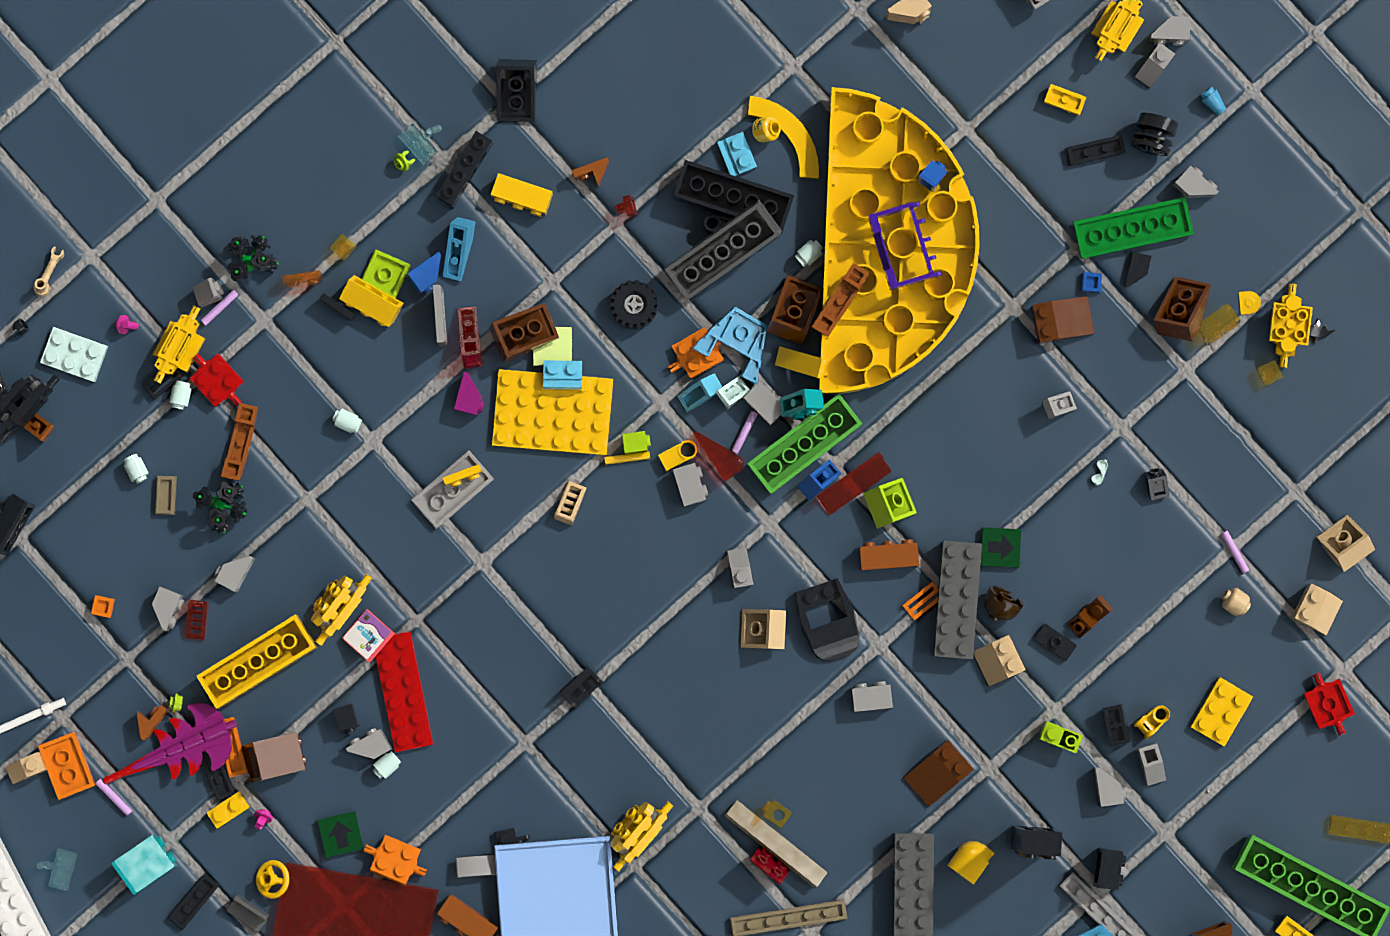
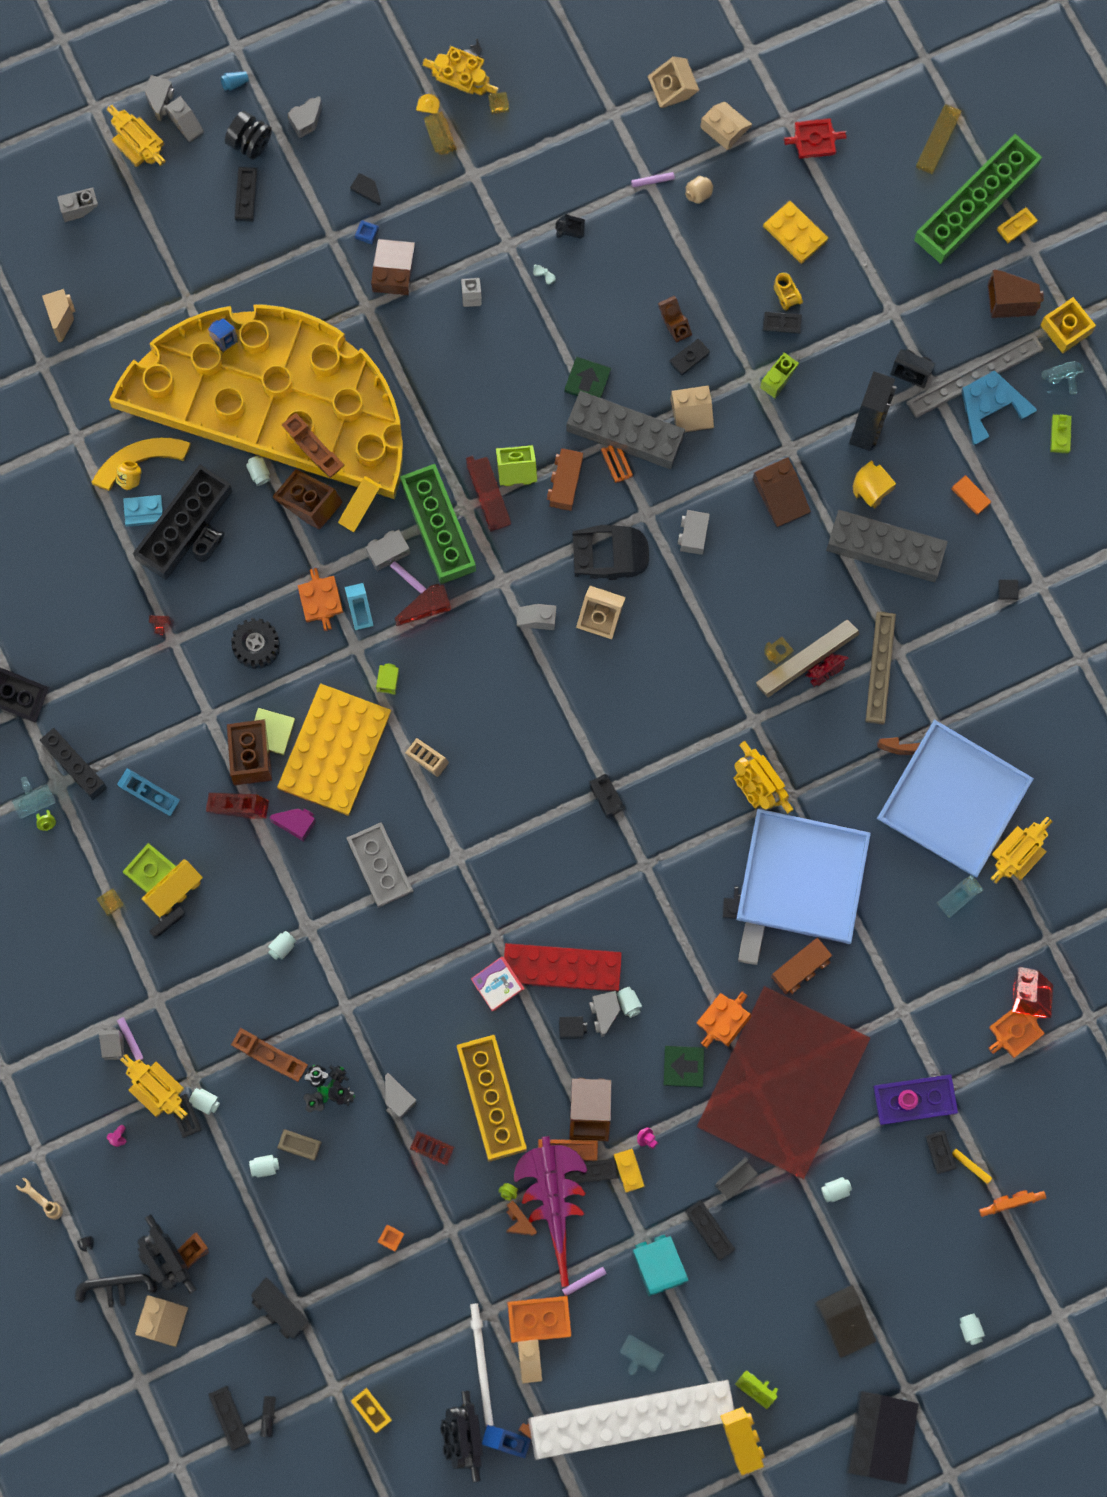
camera: 80 degrees left, 10 degrees down
(74, 354) = (130, 1197): light aqua plate -> none
(166, 606) = (409, 1174): light grey slope -> none
(216, 379) = (200, 1060): red plate -> none
(257, 259) = (97, 980): black plant -> none
(267, 878) = (709, 1151): yellow piece -> none
(310, 278) = (127, 957): clear orange plate -> none
(337, 605) = (459, 1004): yellow piece -> none
(425, 274) = (162, 829): blue slope -> none
(440, 315) = (207, 825): light grey tile -> none
(470, 473) = (370, 855): yellow plate -> none
(521, 195) = (115, 717): yellow brick -> none
(562, 375) = (301, 727): medium azure plate -> none
(596, 168) = (114, 641): dark orange slope -> none
(627, 458) = (399, 692): yellow piece -> none
(673, 456) = (412, 648): yellow piece -> none
(690, 485) = (443, 640): light grey brick -> none
(723, 250) = (230, 541): dark grey brick -> none
(732, 392) = (368, 576): light aqua slope -> none
(741, 334) = (315, 552): wing -> none
(802, 403) = (399, 511): teal brick -> none
(819, 480) = (475, 522): blue slope -> none
(888, 270) = (301, 396): dark purple hinge -> none
(1001, 605) = (642, 391): dark brown cylinder -> none
(1065, 99) = (190, 206): yellow plate -> none
(1108, 789) = (838, 348): light grey slope -> none
(1133, 228) = (328, 181): green plate -> none
(1151, 763) = (825, 302): light grey slope -> none
(1182, 309) = (417, 157): reddish brown slope -> none

